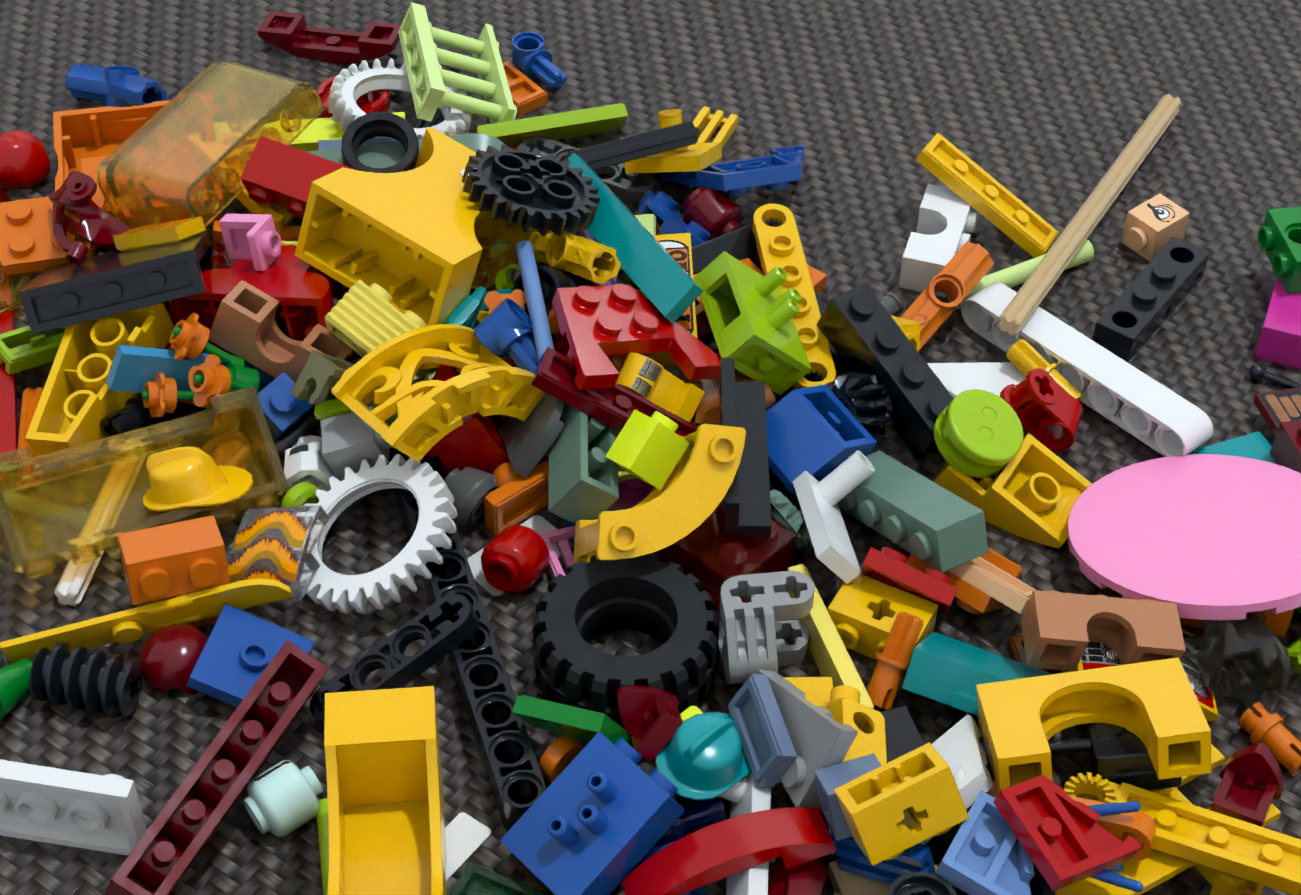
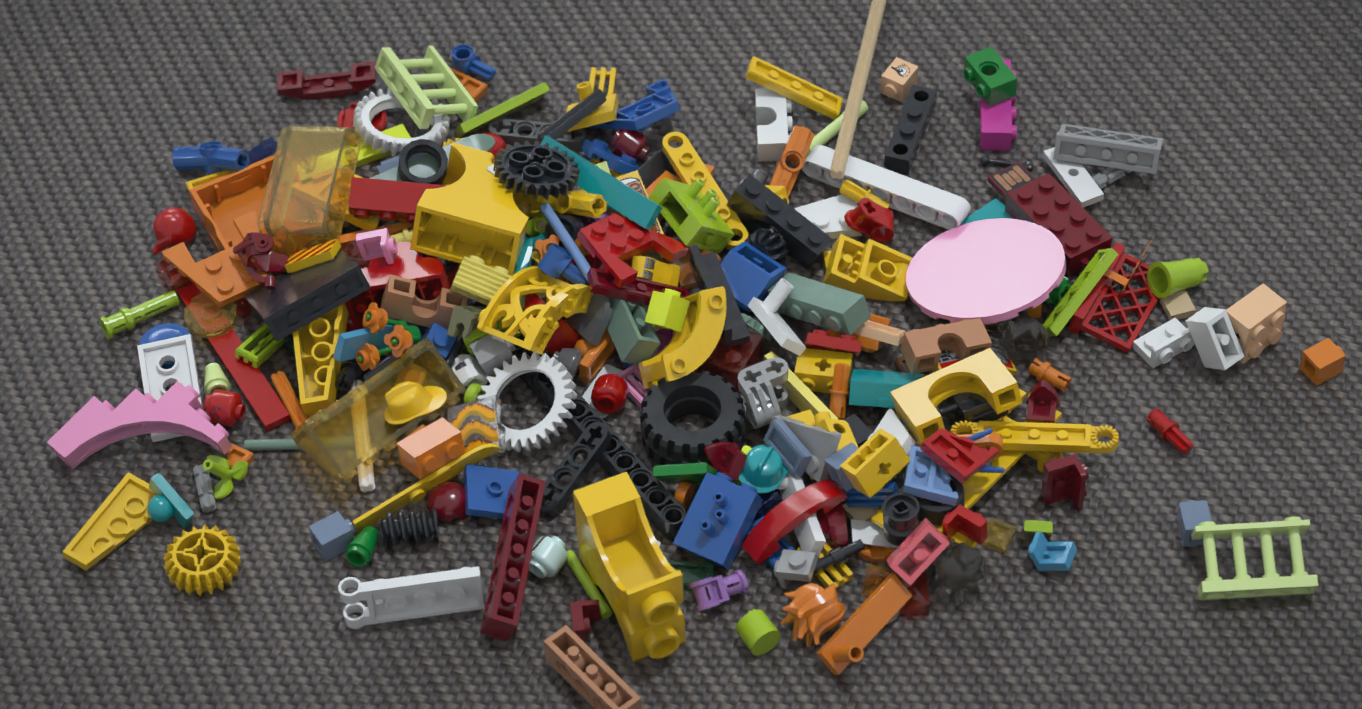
camera: 15 degrees left, 5 degrees up
(978, 433) = (842, 247): lime head -> none

